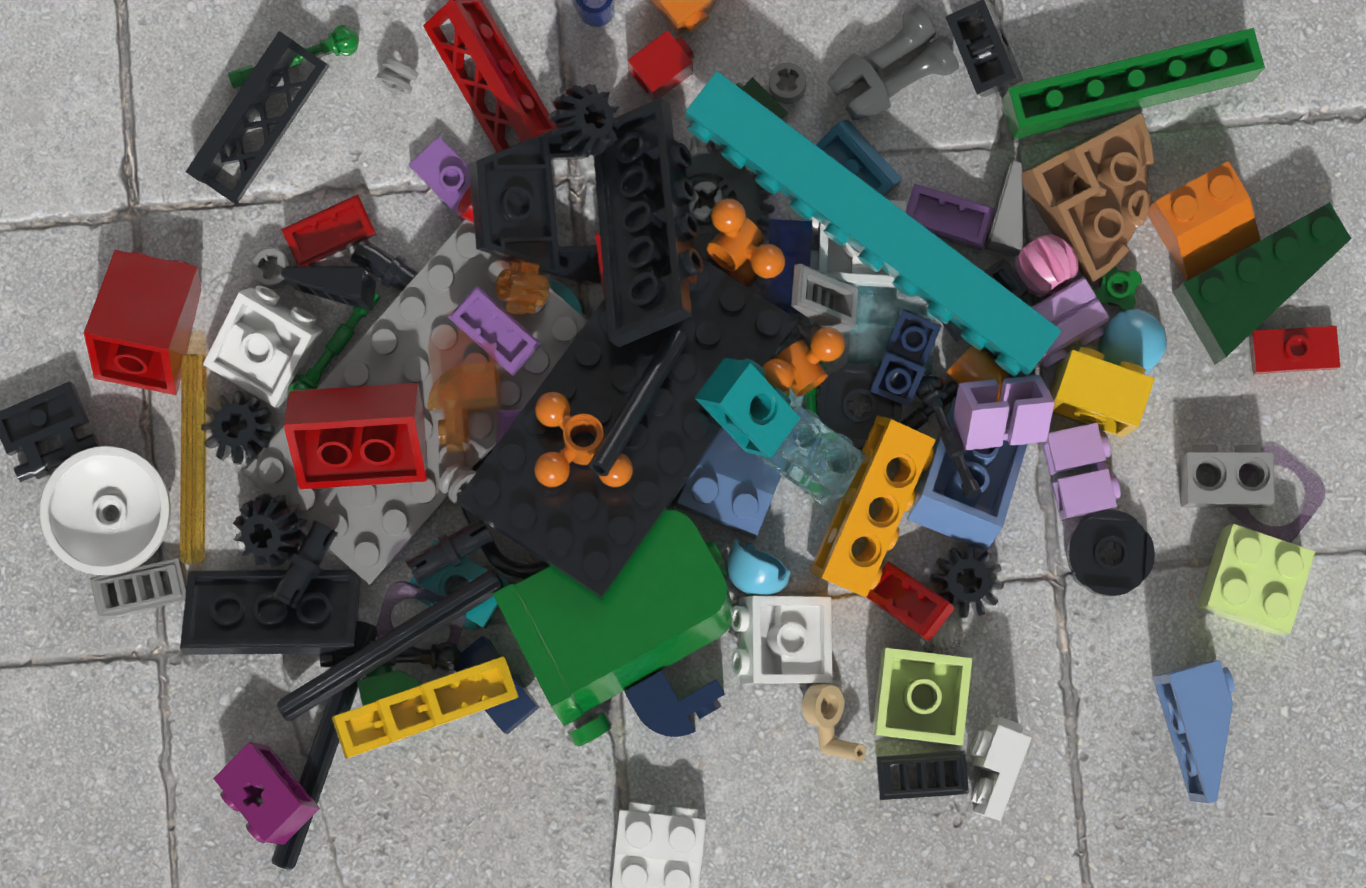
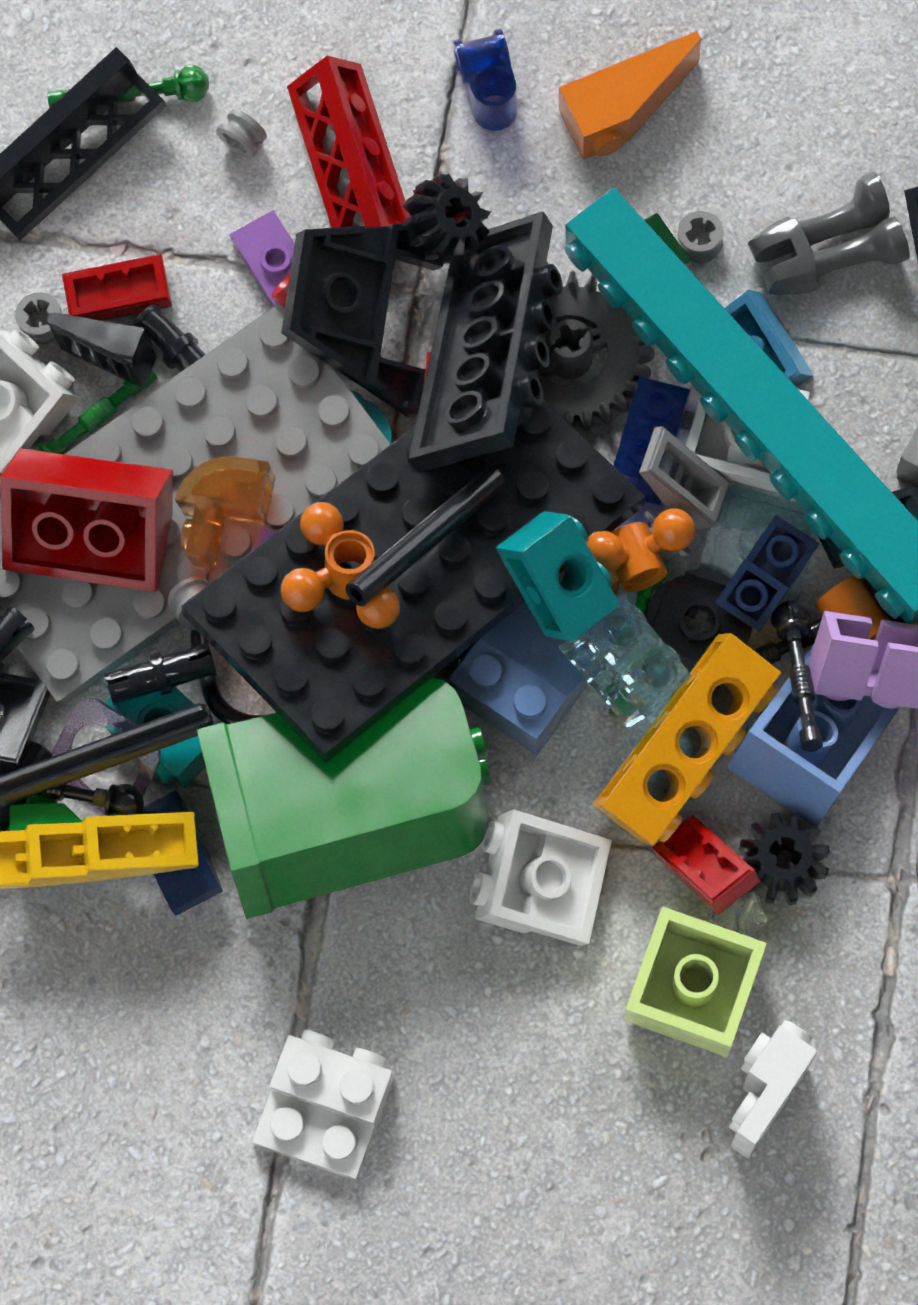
camera: 20 degrees right, 10 degrees down
(494, 330) = (279, 431): medium lavender plate -> none
(522, 287) = (323, 387): clear orange gear -> none
(590, 729) = (278, 931): green tile -> none
(661, 65) = (555, 182): red brick -> none
(664, 713) = (377, 935): dark blue brick -> none
(738, 245) = (596, 394): orange piece -> none
(755, 570) = (524, 786): medium azure hair -> none
(824, 708) = (572, 972): tan plate -> none
(950, 216) = (867, 428): medium lavender plate -> none
(959, 771) = (721, 1069): black slope -> none

